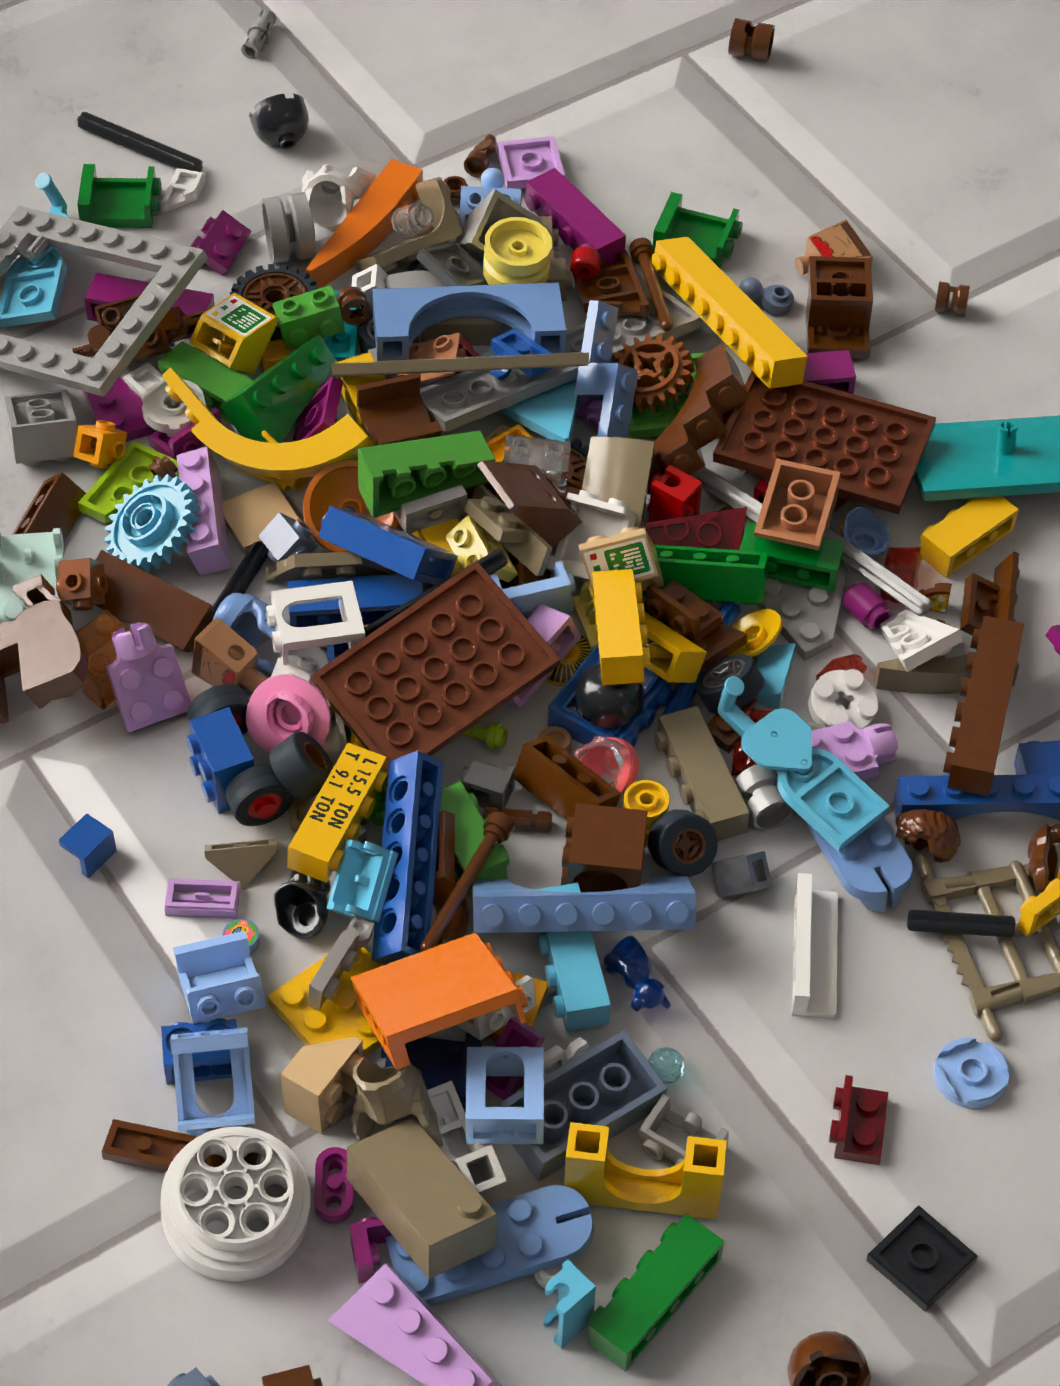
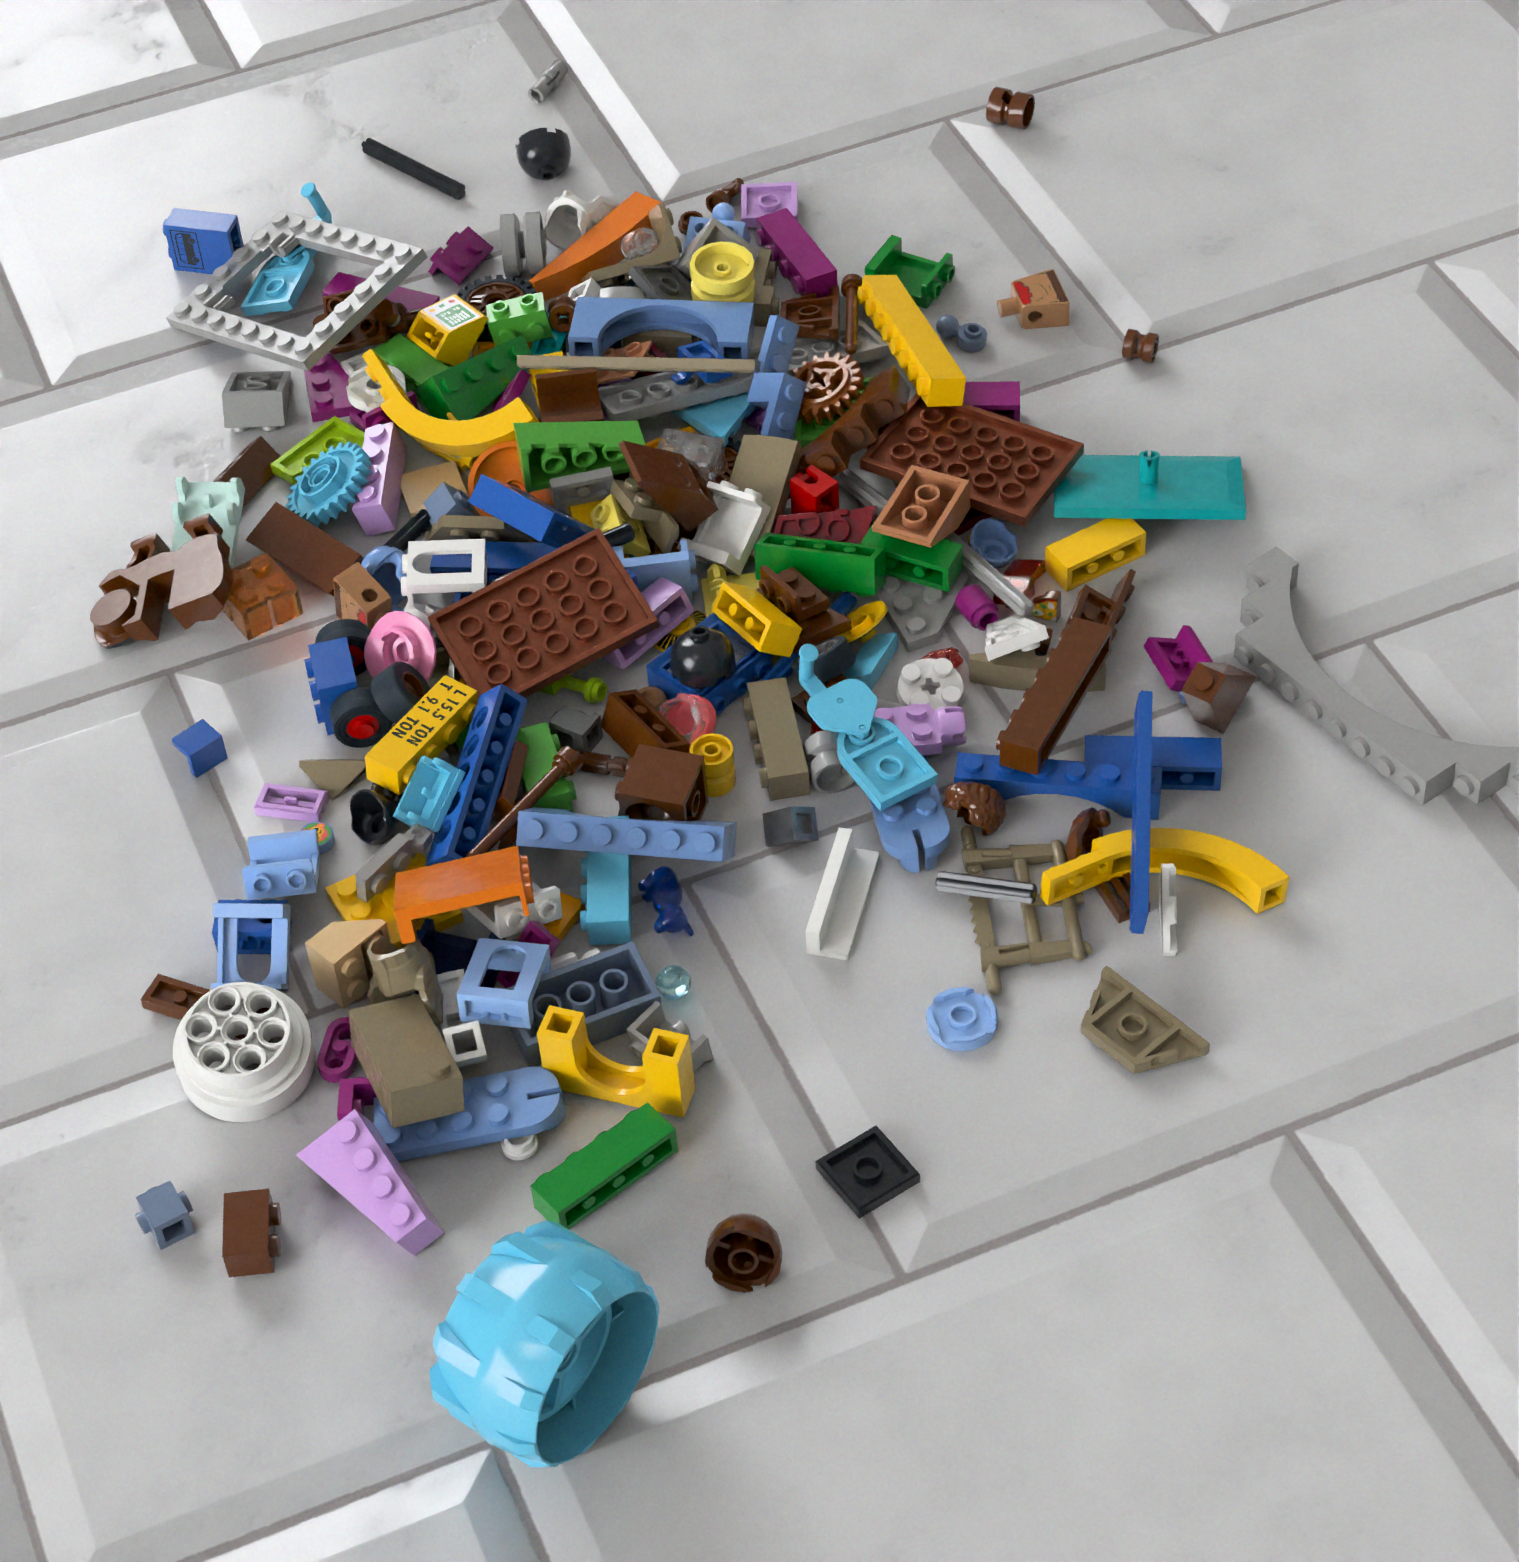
camera: 15 degrees right, 5 degrees down
(81, 583) = (249, 527): dark orange brick -> none
(100, 444) = (307, 418): light orange brick -> none
(118, 200) = (380, 215): green panel -> none
(146, 678) = (285, 611): lavender plate -> none
(162, 467) = (351, 435): reddish brown plate -> none
(183, 189) = (442, 209): white tile -> none
(573, 1304) = (518, 1167): medium azure hinge -> none
(585, 262) = (792, 292): red piece -> none
(619, 627) = (717, 595): yellow brick -> none
(622, 551) = (738, 543): slope -> none
(693, 850) = (746, 800): black wheel -> none
(839, 305) = (1024, 342): reddish brown bracket -> none
(860, 1123) = (839, 1049): dark red bracket -> none

